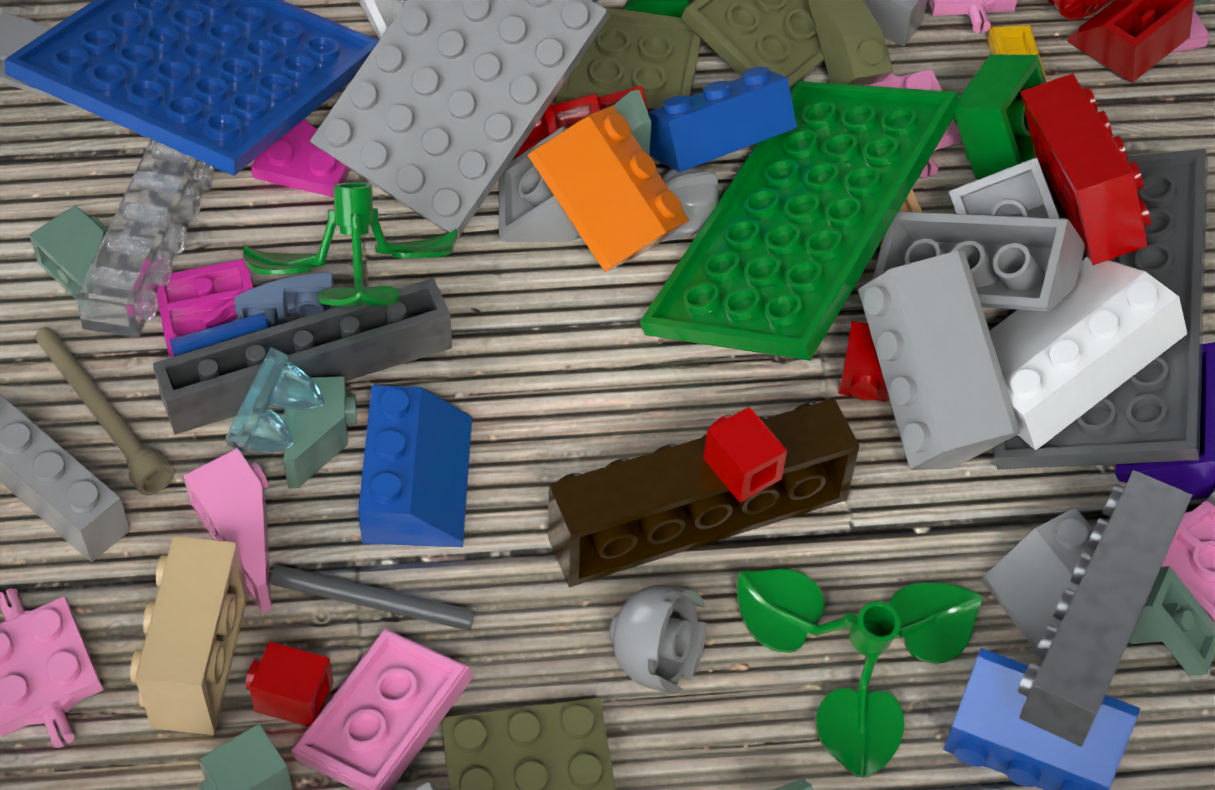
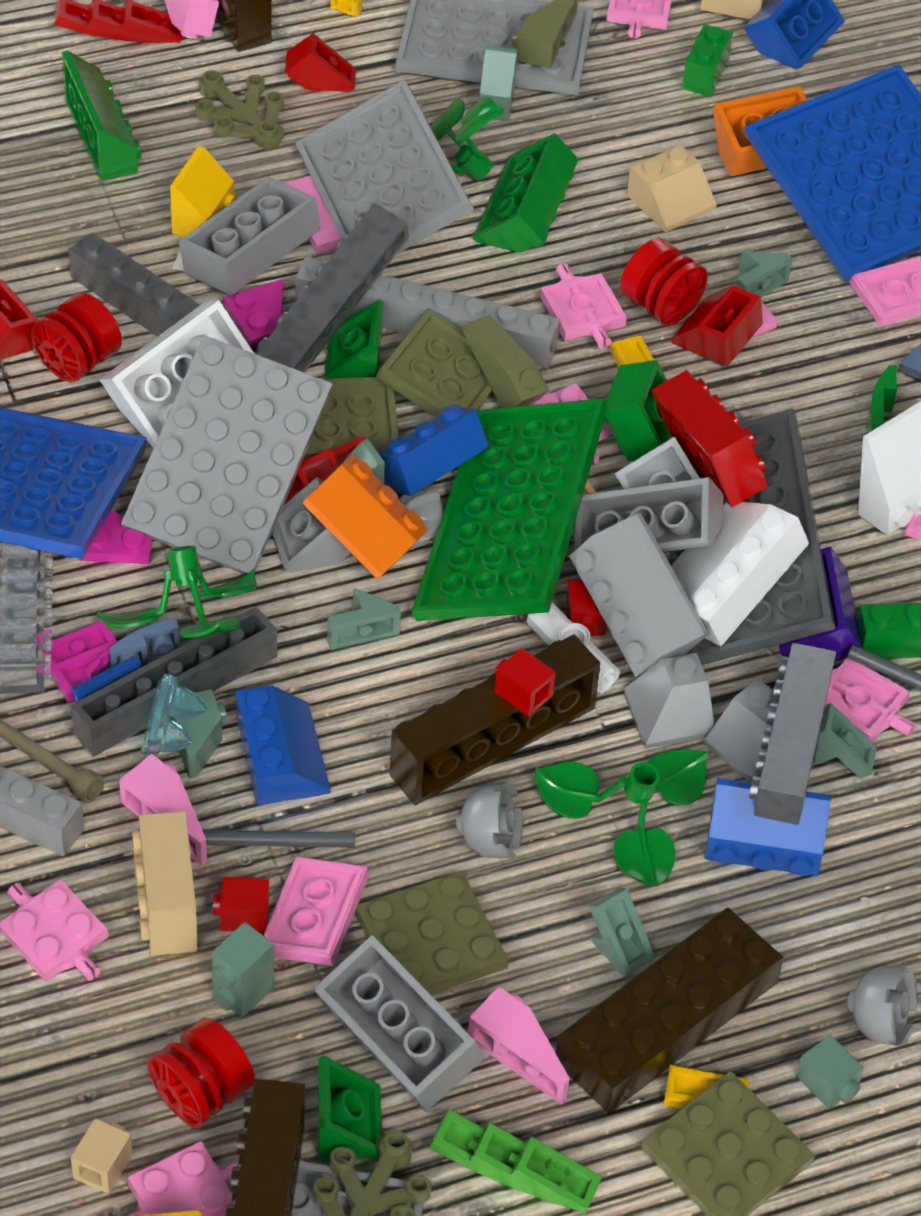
camera: 15 degrees left, 5 degrees down
(584, 325) = (369, 621): none -> sand green slope
(822, 381) = (557, 626): none -> white piece
(950, 514) = (671, 702): none -> light grey slope

